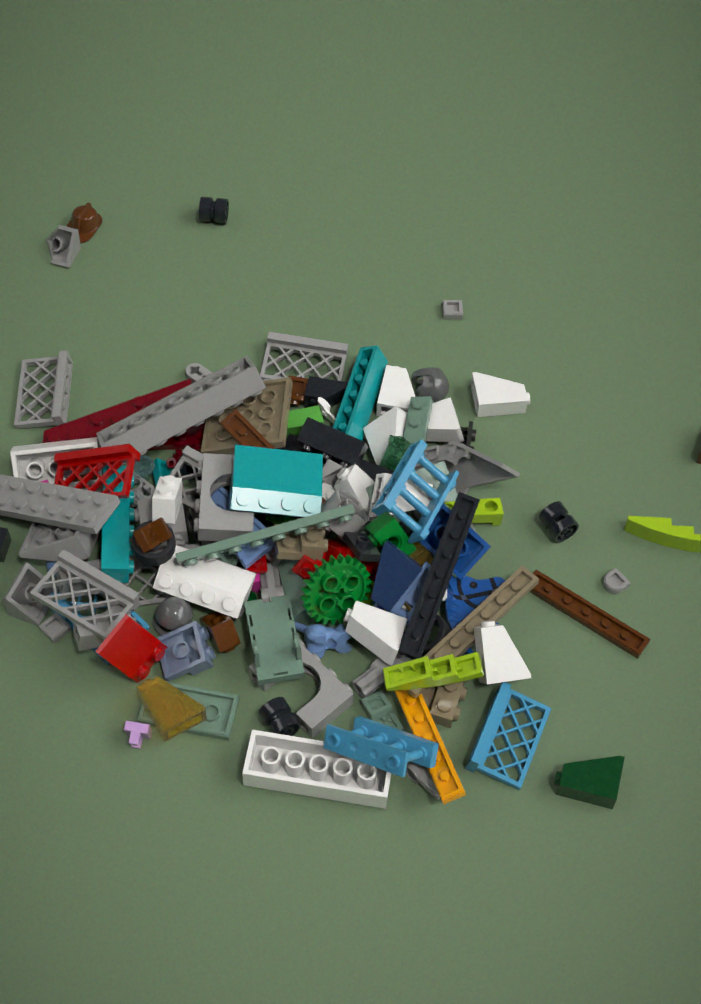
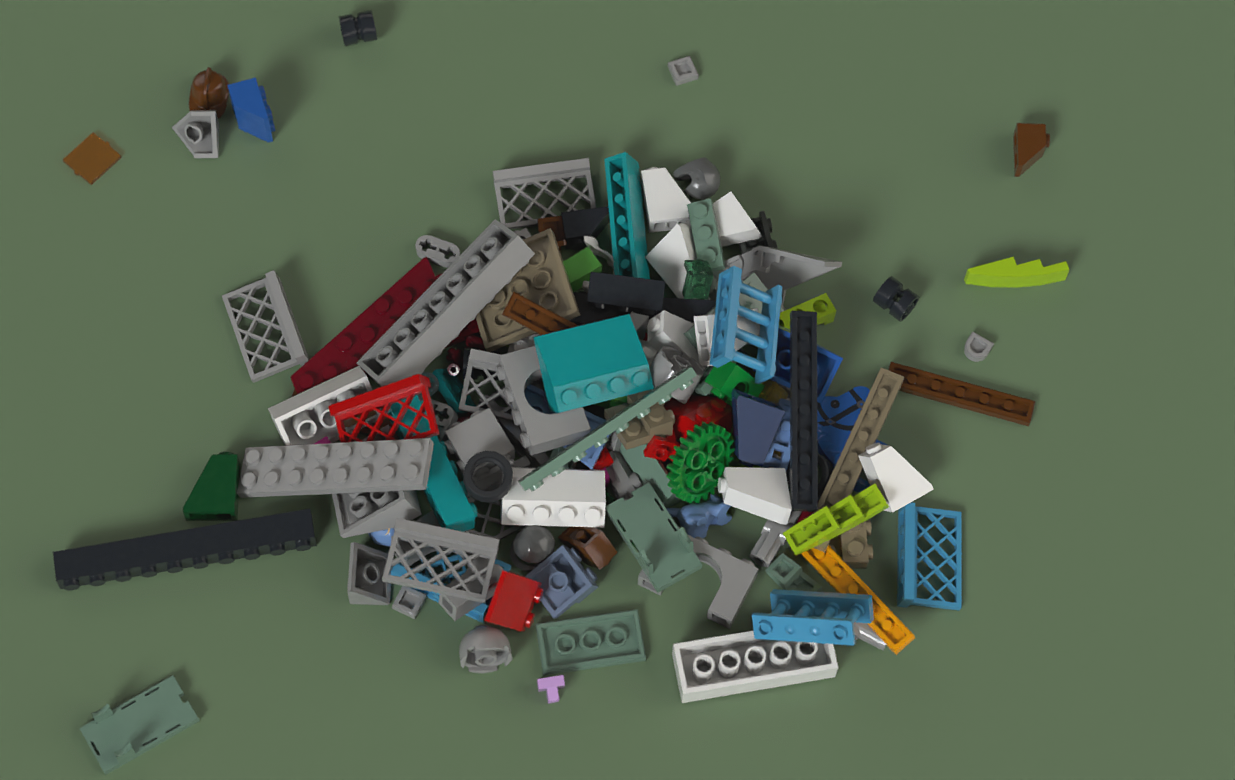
camera: 20 degrees left, 10 degrees up
(94, 683) = (484, 649): none -> light grey cylinder
(106, 237) = (251, 109): none -> blue slope
(152, 534) = (487, 469): reddish brown bracket -> none
(167, 499) = (485, 424): white brick -> none
(169, 707) = (574, 648): clear yellow slope -> none
(279, 717) = (692, 621): black wheel -> none
(361, 547) = (711, 406): black plate -> none
(498, 396) = (775, 166): white slope -> none
(591, 780) = (1029, 576): dark green slope -> none

